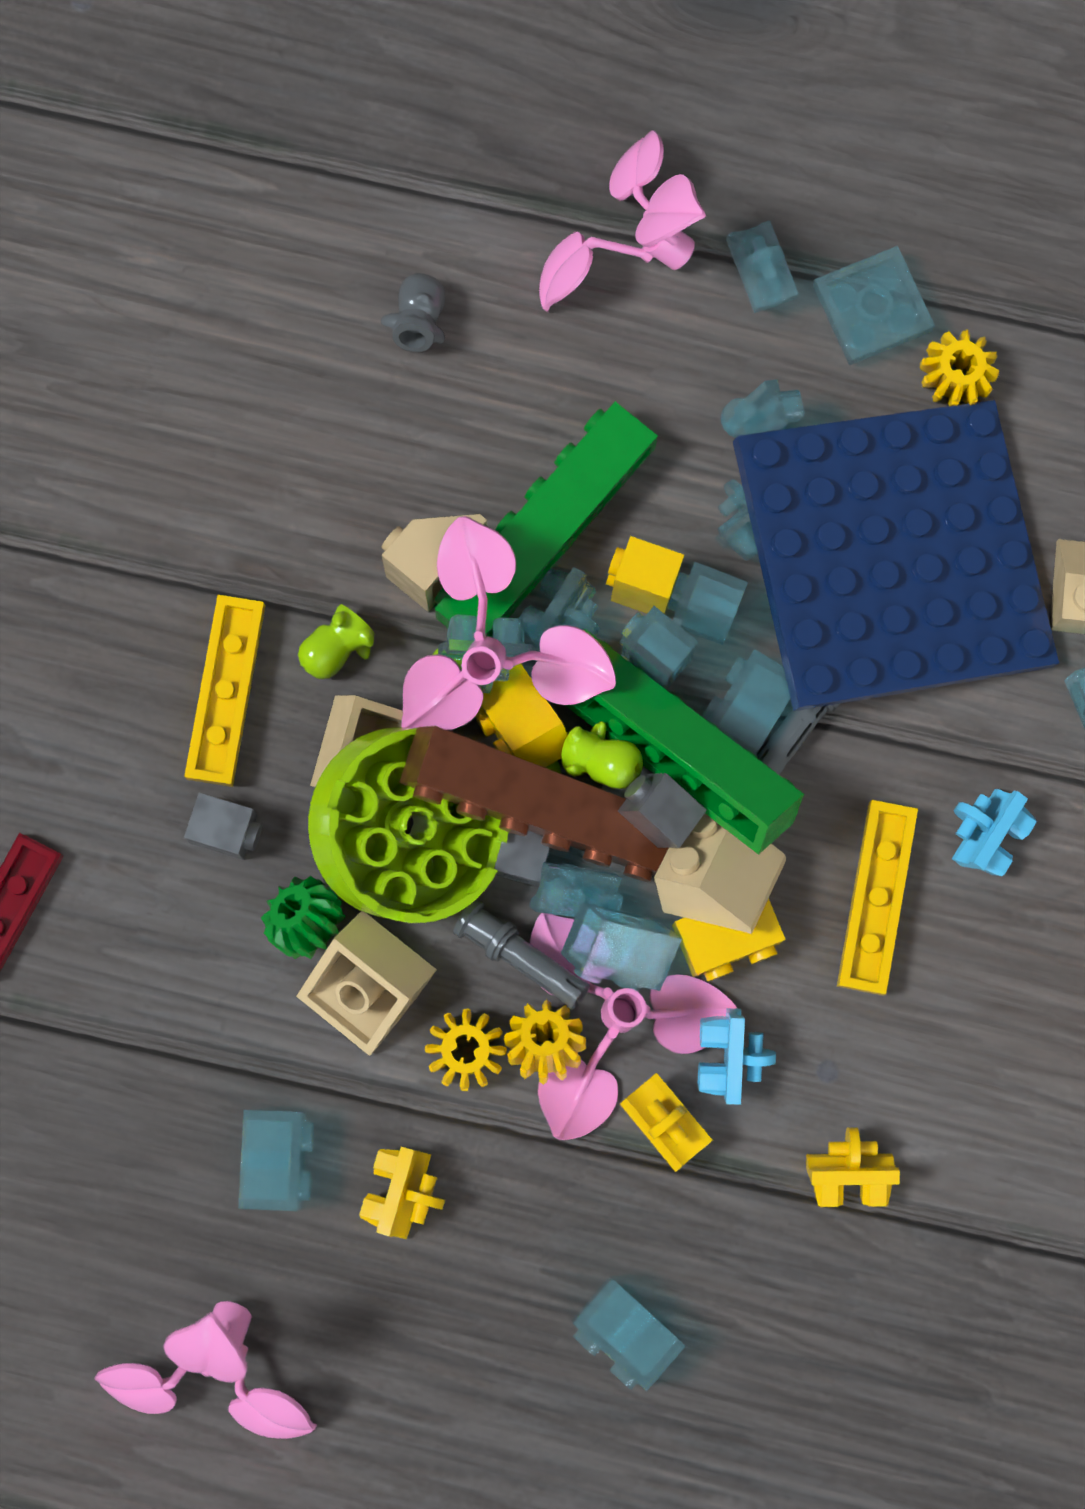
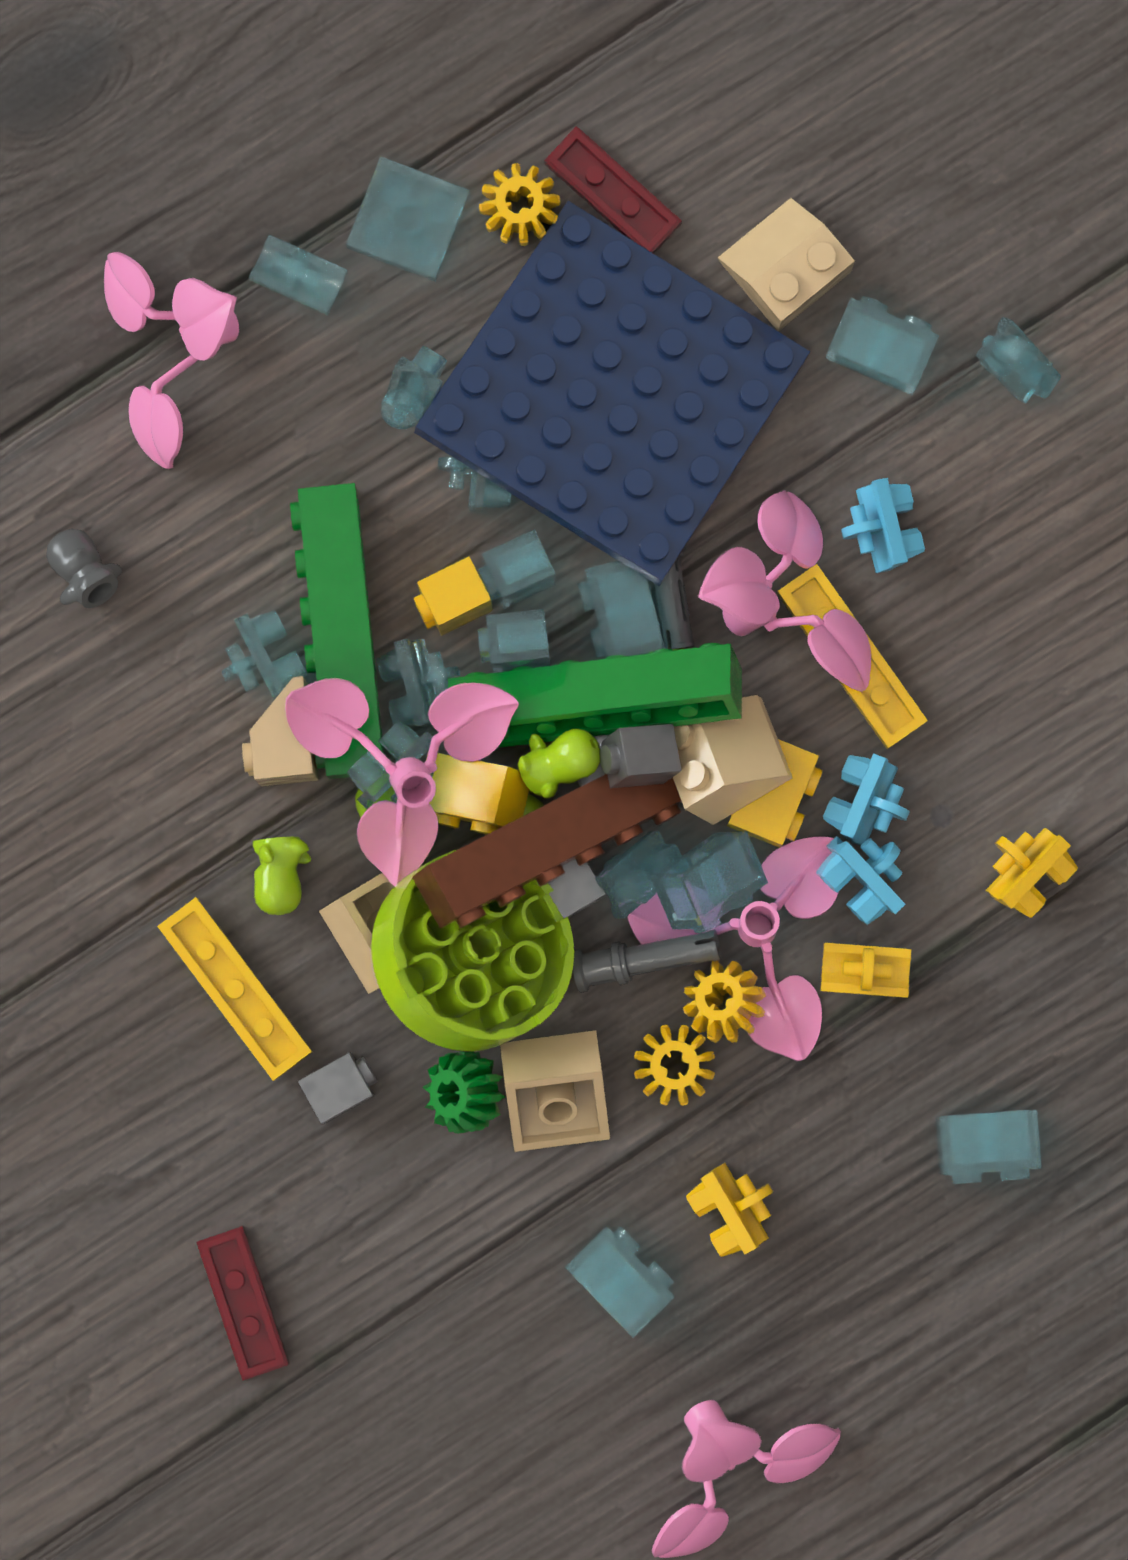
camera: 40 degrees left, 5 degrees up
(487, 472) = (257, 634): none -> clear light blue hips
(789, 1012) = (874, 802): none -> medium azure hips
(851, 760) = (744, 592): none -> bright pink plant
(1031, 424) = (612, 191): none -> dark red tile

